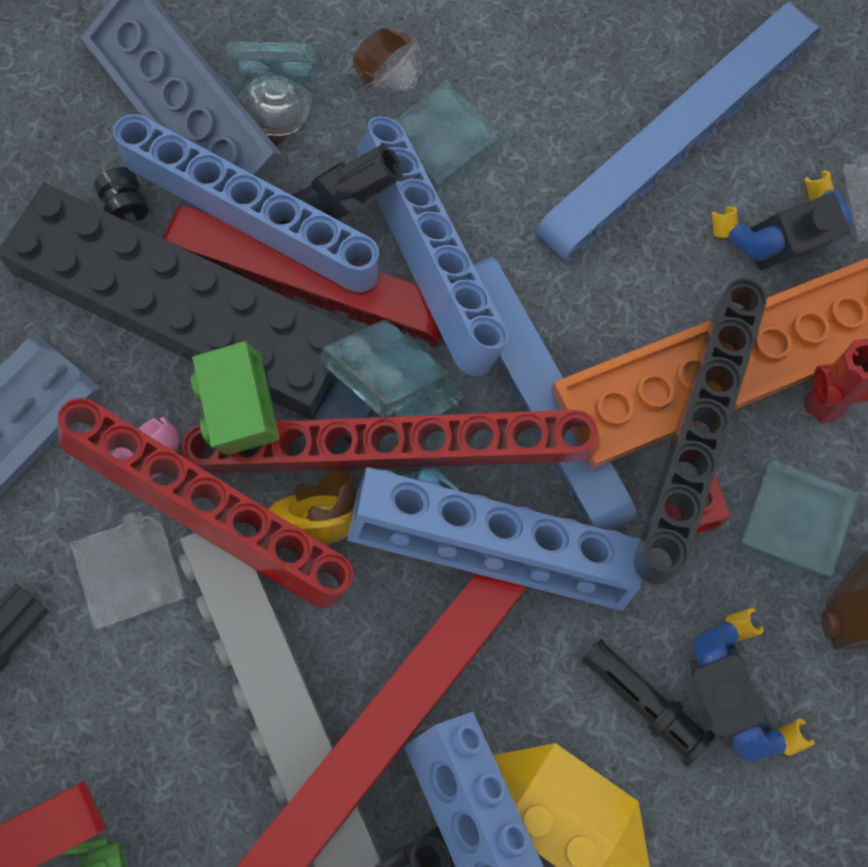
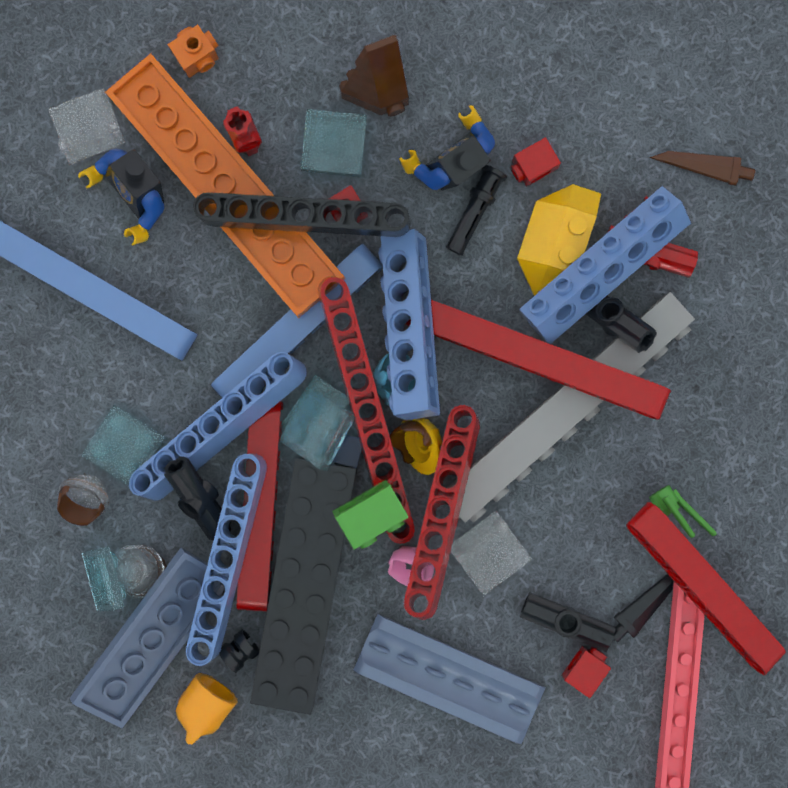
camera: 100 degrees left, 15 degrees up
(66, 128) = (204, 706): none -> light orange piece
(700, 818) = (534, 162): none -> red brick

